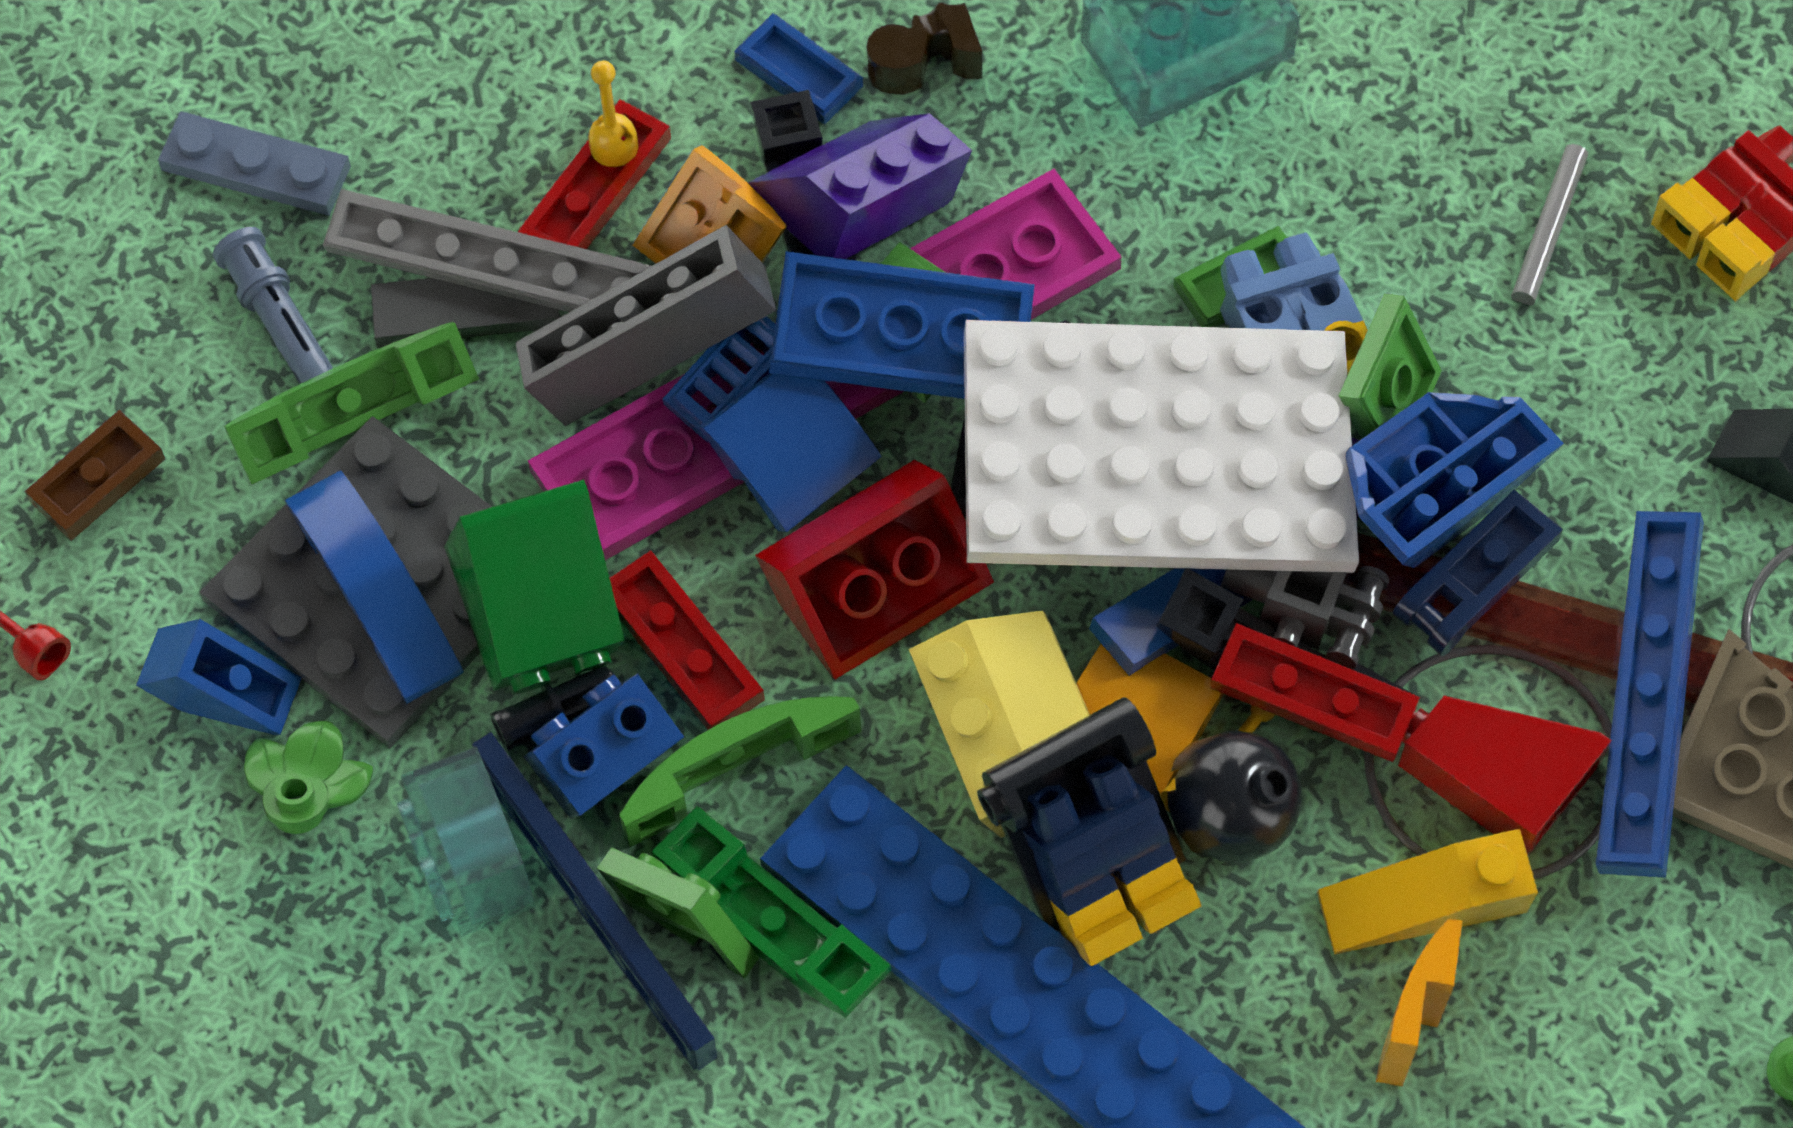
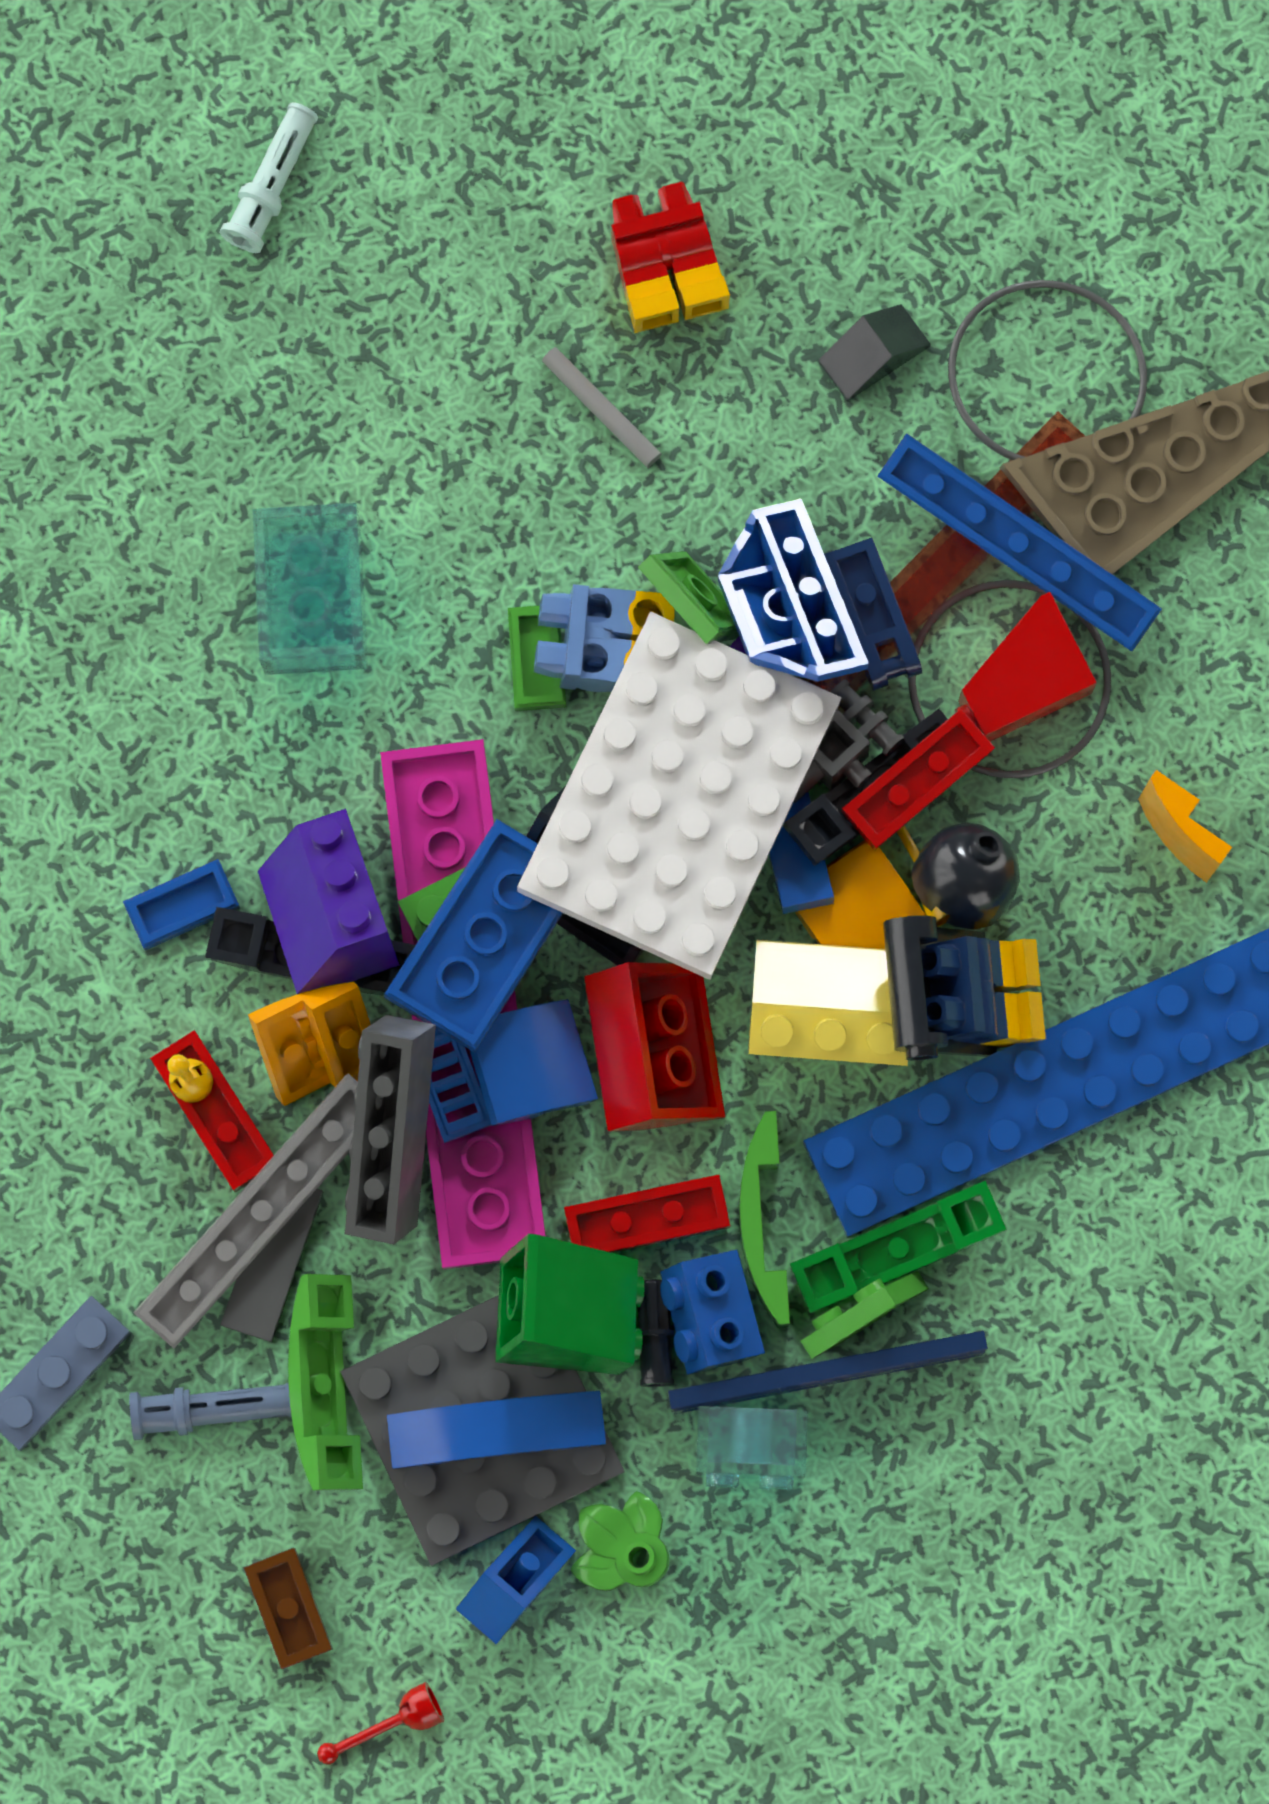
camera: 65 degrees left, 15 degrees up
(901, 54) = (218, 821): dark brown leg -> none
(1416, 896) = (1097, 776): yellow slope -> none

